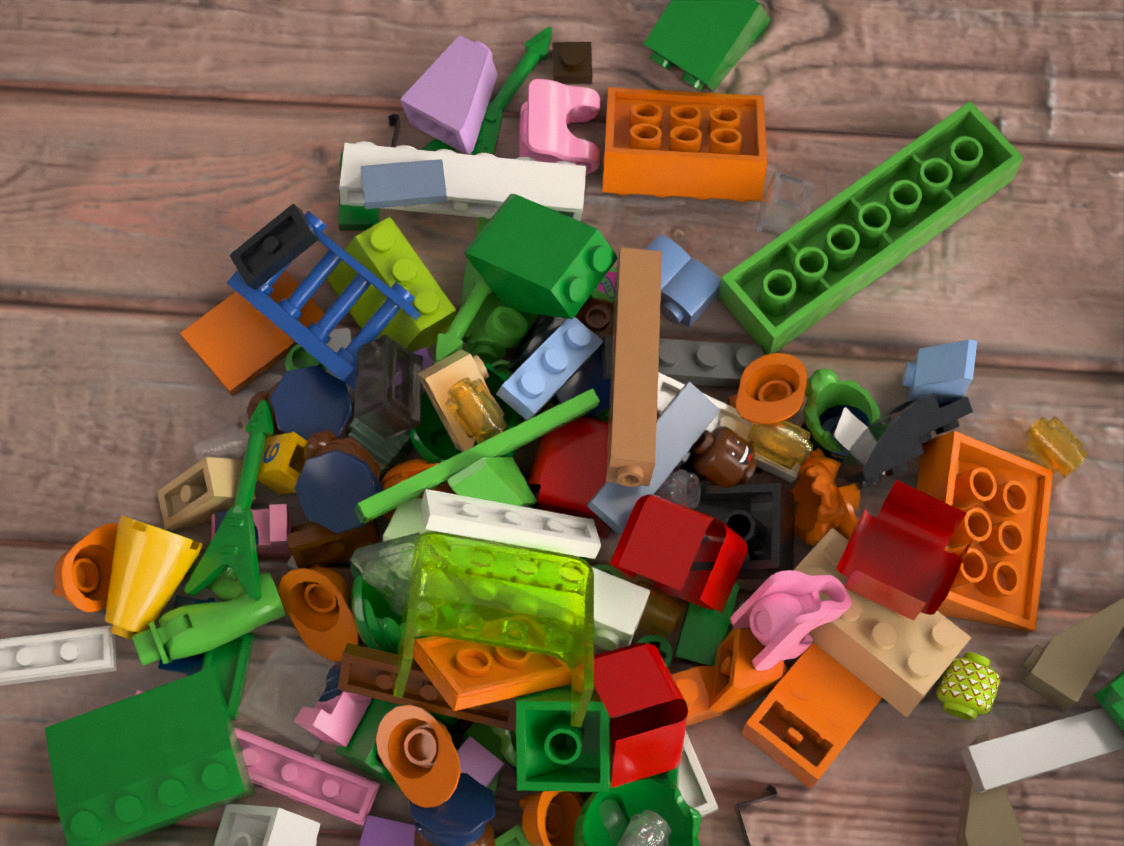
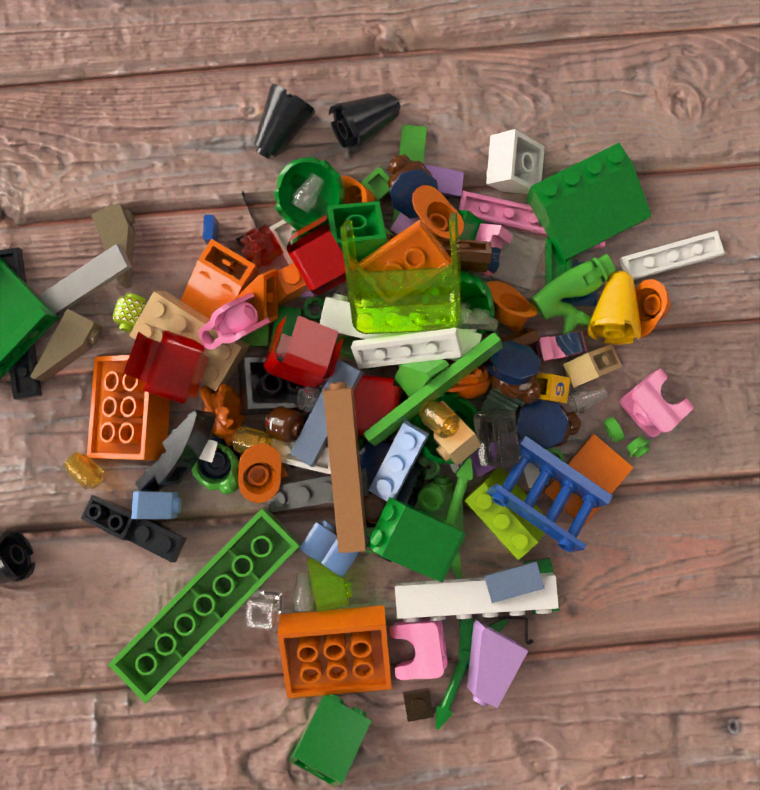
camera: 175 degrees right, 15 degrees up
(134, 414) = (650, 409): none -> bright pink piece
(163, 361) = (639, 447): none -> bright green plate
(197, 391) = (613, 430): none -> bright green tile
(235, 539) = (570, 332): green piece -> none
(274, 247) = (588, 518): black plate -> none
(684, 221) = (328, 587): none -> clear neon green slope
(722, 225) = (303, 594): none -> clear cone
(734, 768) = (260, 246): none -> clear red brick
(820, 814) = (210, 228): none -> blue tile
(999, 359) = (142, 532): none -> black slope

